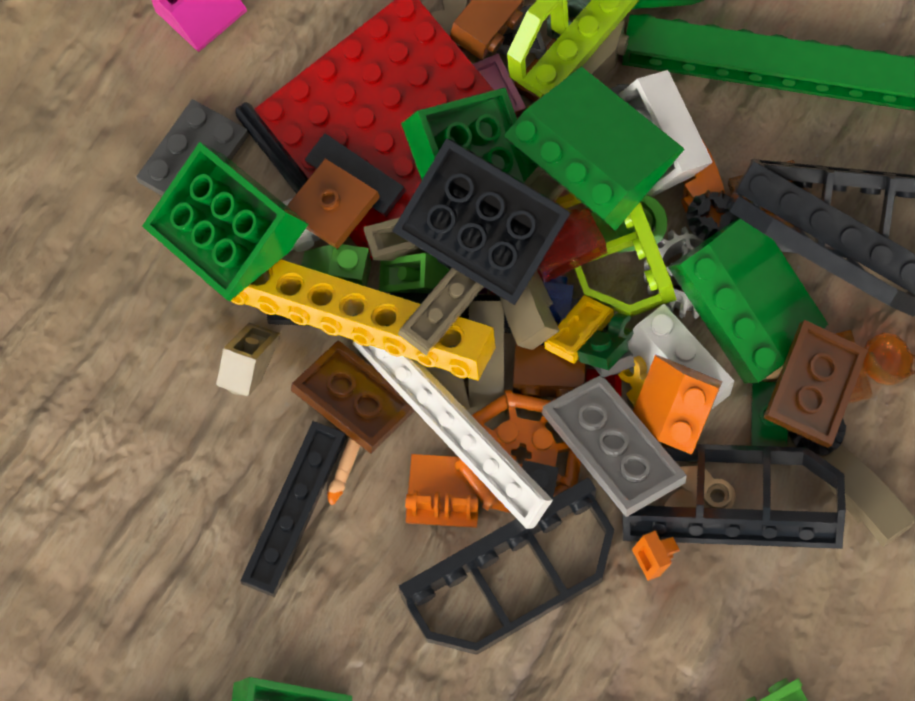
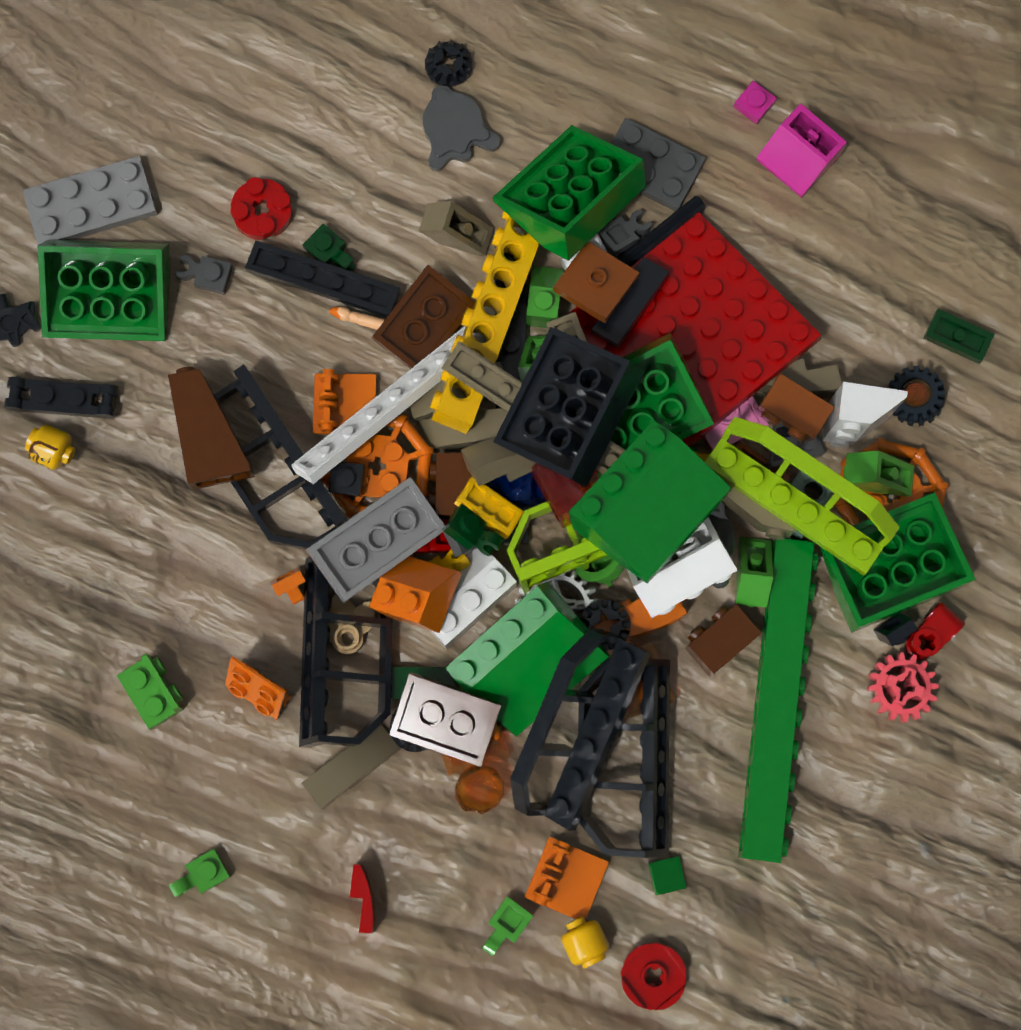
camera: 80 degrees right, 10 degrees up
(58, 367) = (443, 74): none -> black gear
(124, 359) = (453, 127): none -> dark grey tile
(133, 49) = (755, 102): none -> dark pink plate
(193, 558) = (265, 225): none -> red plate
(255, 504) = (328, 248): none -> dark green plate
(272, 180) = (621, 235): none -> dark grey plate
(274, 641) = (208, 275): none -> dark grey plate
(475, 638) = (206, 438): none -> reddish brown slope
(679, 68) = (754, 572): none -> bright green slope
(728, 112) = (722, 640): none -> reddish brown brick
(776, 592) = (247, 683): none -> orange hinge

